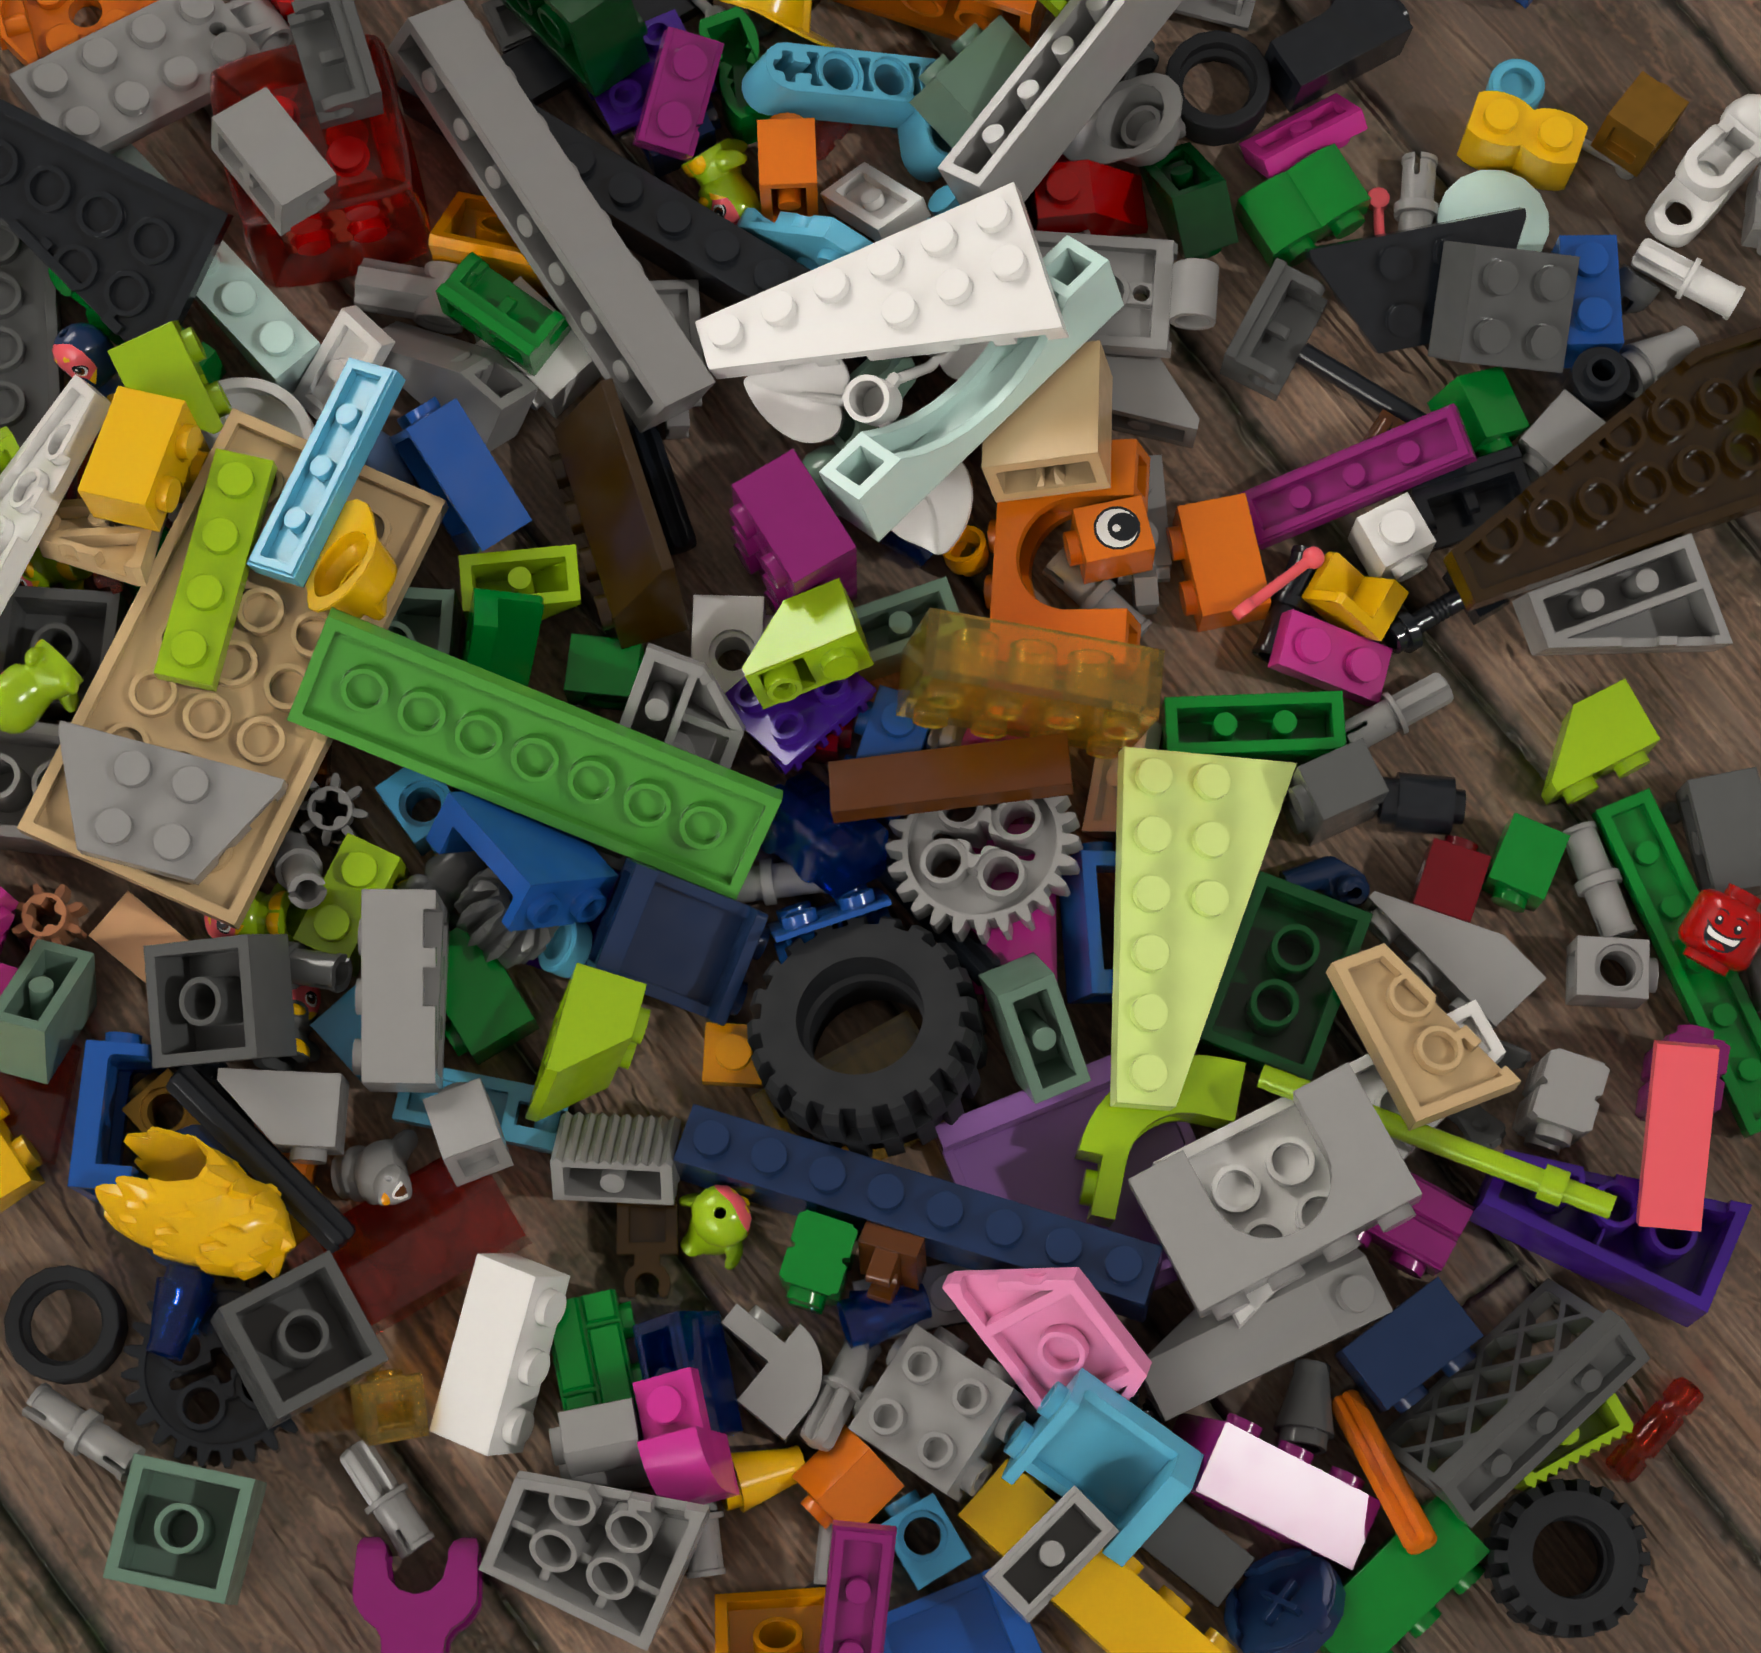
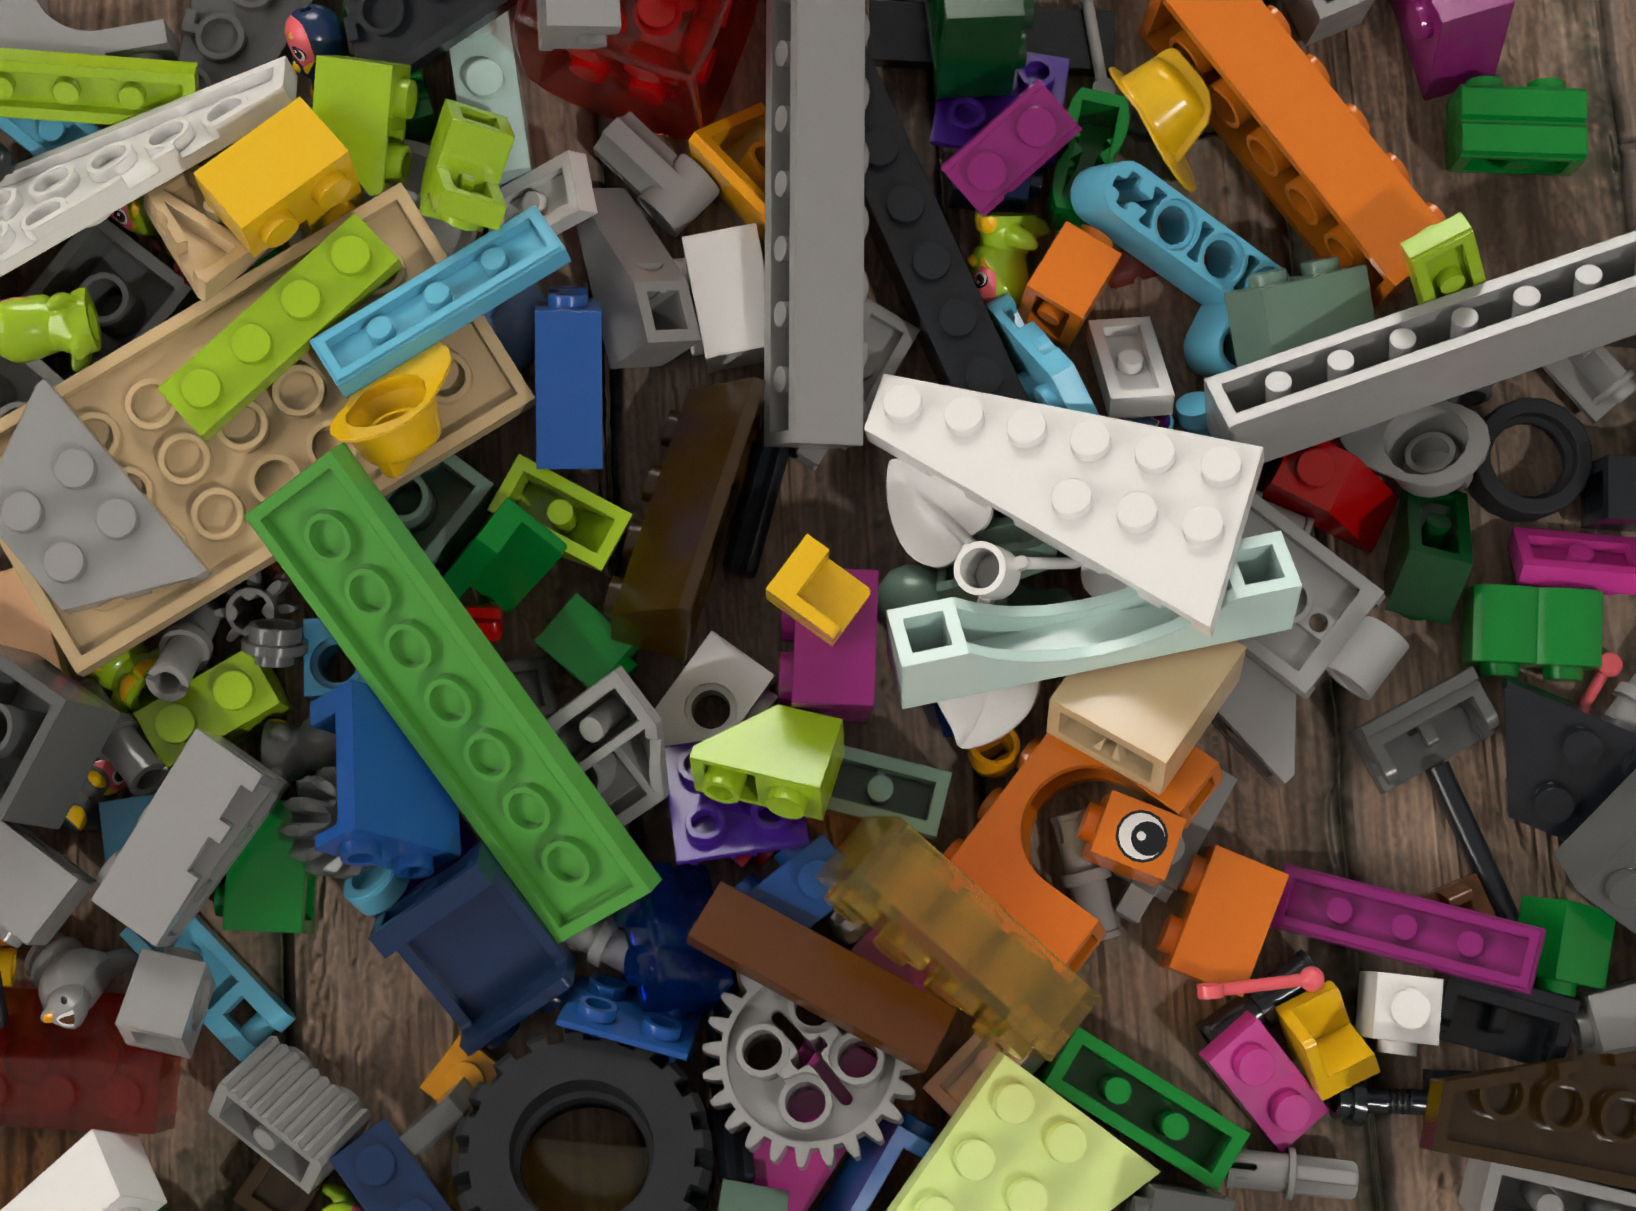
camera: 30 degrees right, 5 degrees up
(276, 366) = (466, 168): none -> lime brick
(367, 813) = (274, 642): none -> dark grey plate
(502, 314) = (713, 249): green hinge -> none
(588, 1039) = (332, 989): lime slope -> none
(734, 1081) = (438, 1118): none -> dark grey tile
(758, 489) = (817, 591): none -> yellow panel

